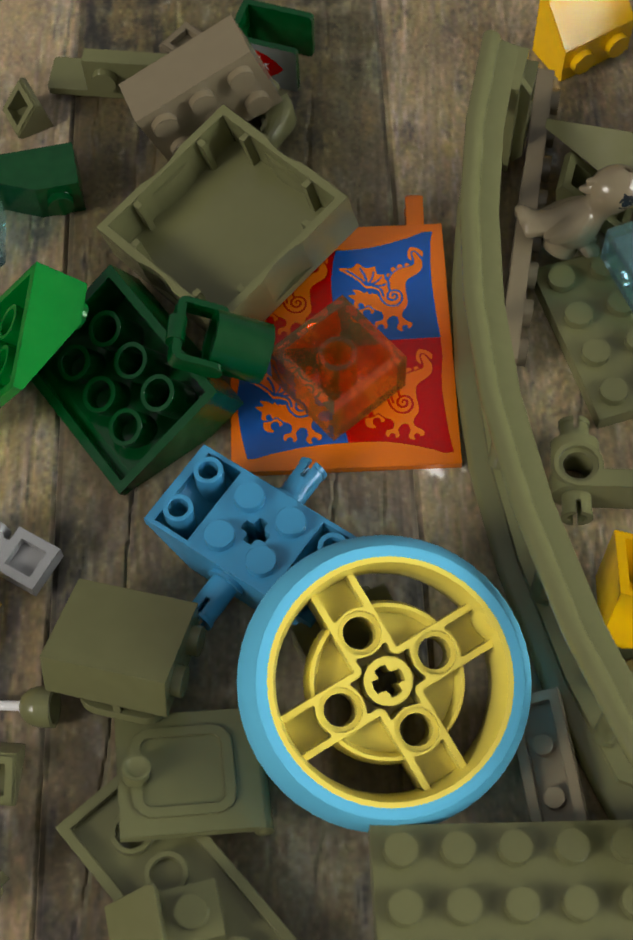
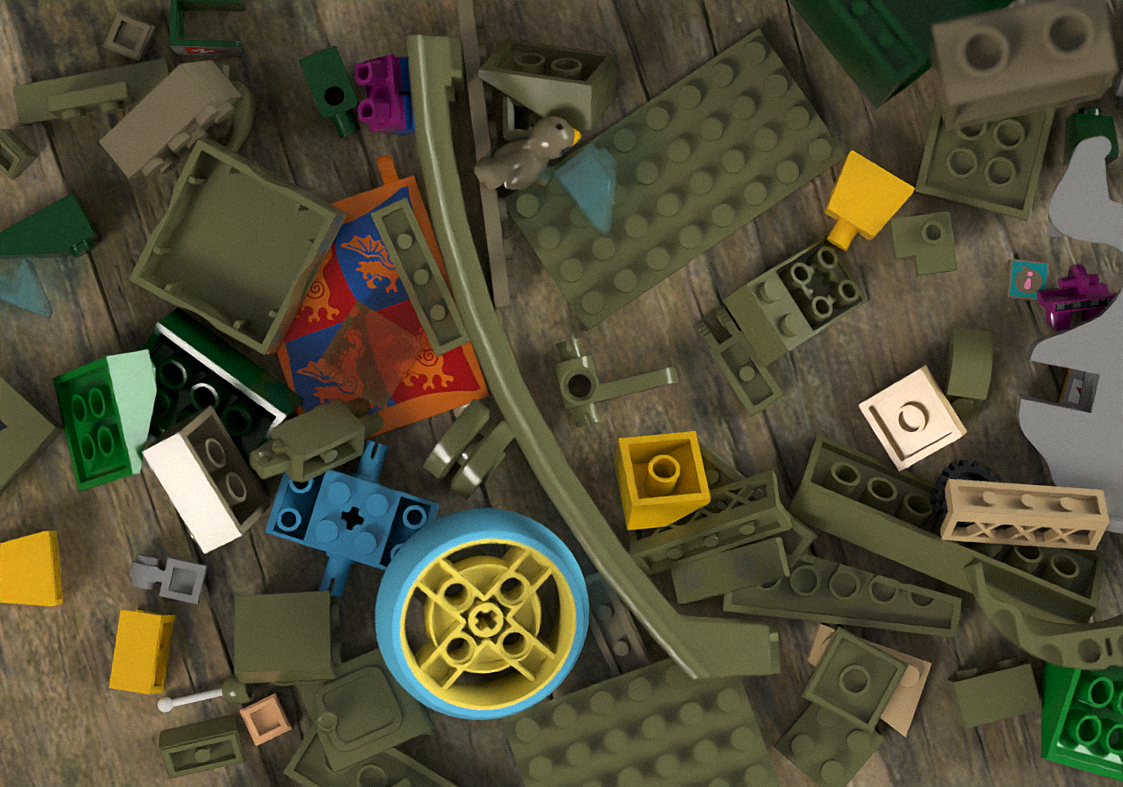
camera: 20 degrees left, 25 degrees up
(61, 759) = (266, 719): none -> light nougat tile
(97, 436) = (206, 479): none -> dark tan brick
(231, 345) = (281, 371): dark green piece -> none
(243, 431) = (317, 440): none -> olive hinge
(380, 125) = (326, 71): none -> dark green torso
(421, 315) = (421, 276): none -> olive plate
(425, 491) = (473, 451): none -> olive wheel
(436, 137) = (388, 95): none -> magenta hips

